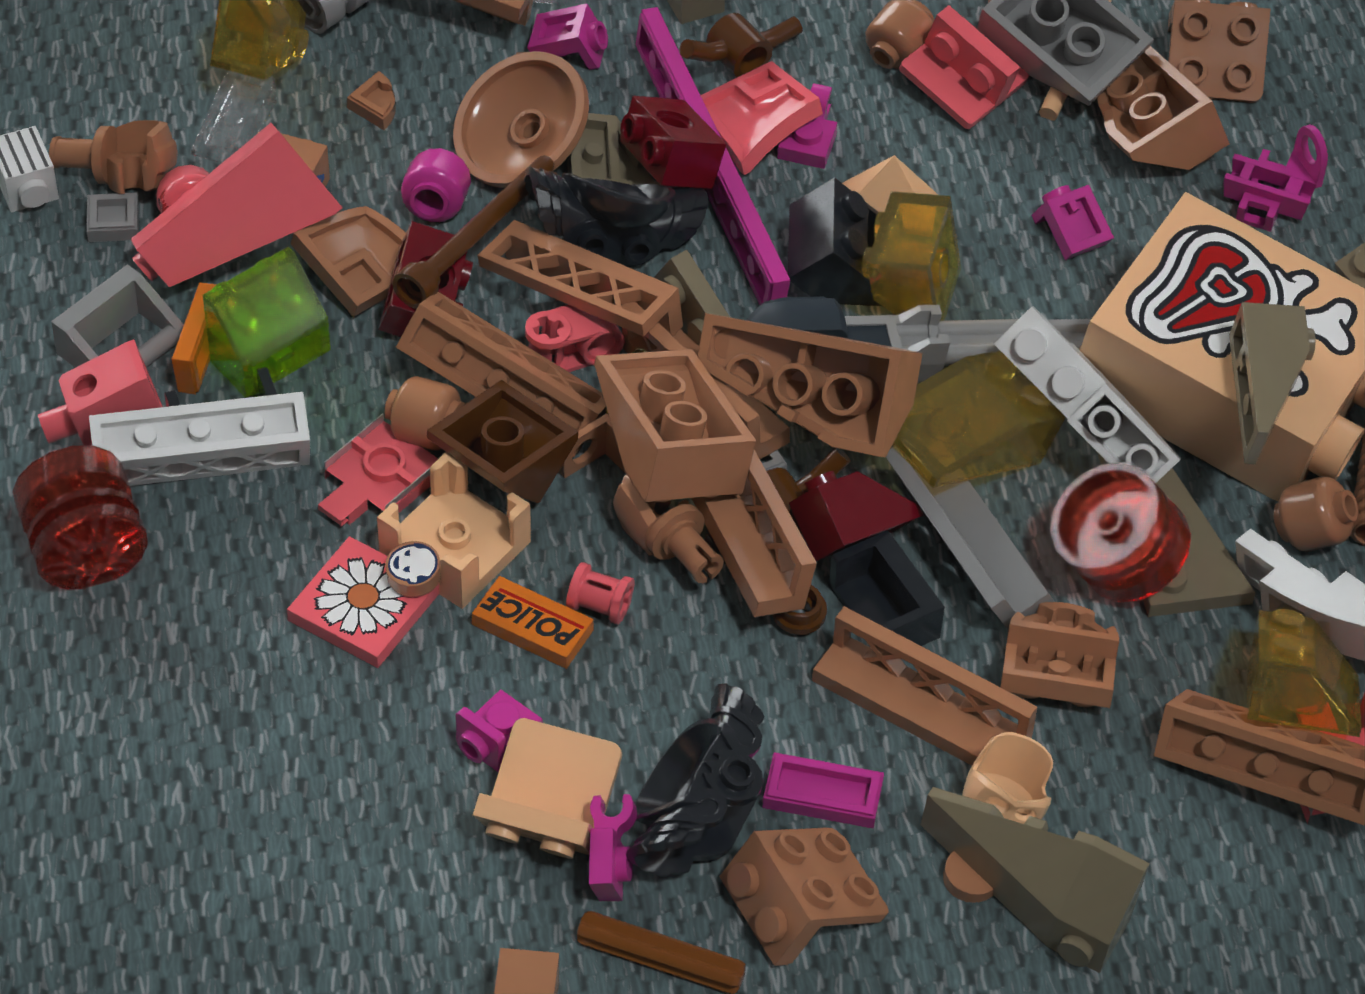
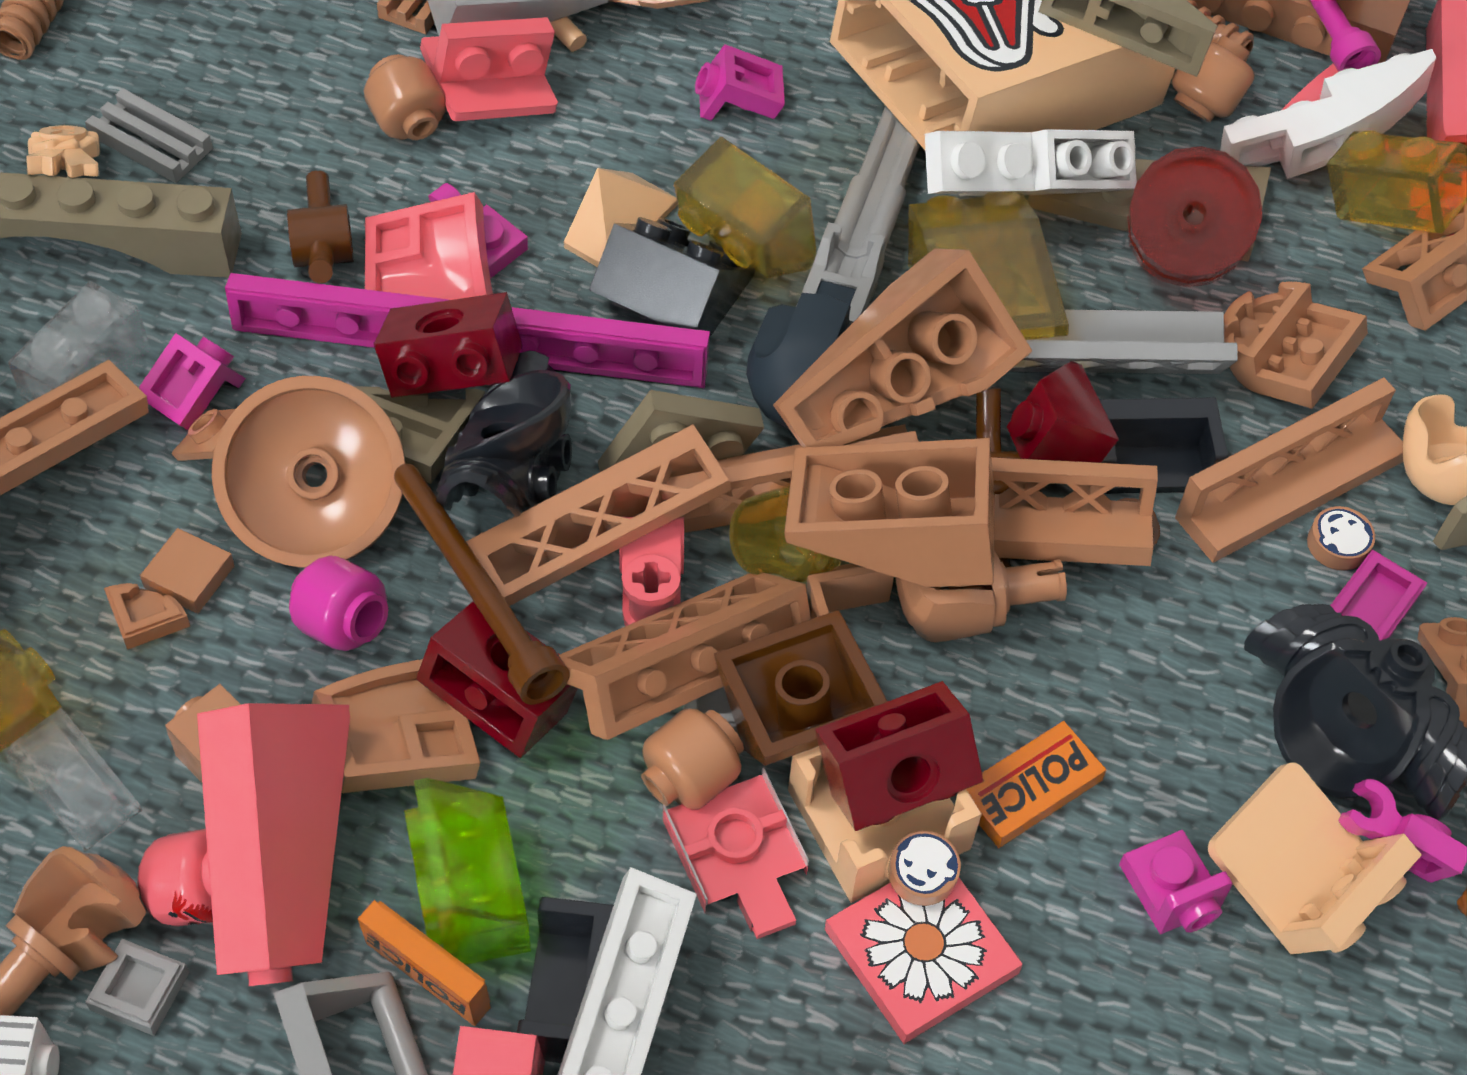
camera: 65 degrees left, 5 degrees up
(421, 106) = (187, 570): none -> nougat tile
(472, 502) = (899, 755): none -> dark red brick
(600, 593) = (1016, 698): coral bush -> none
(887, 750) = (1341, 538): none -> tile

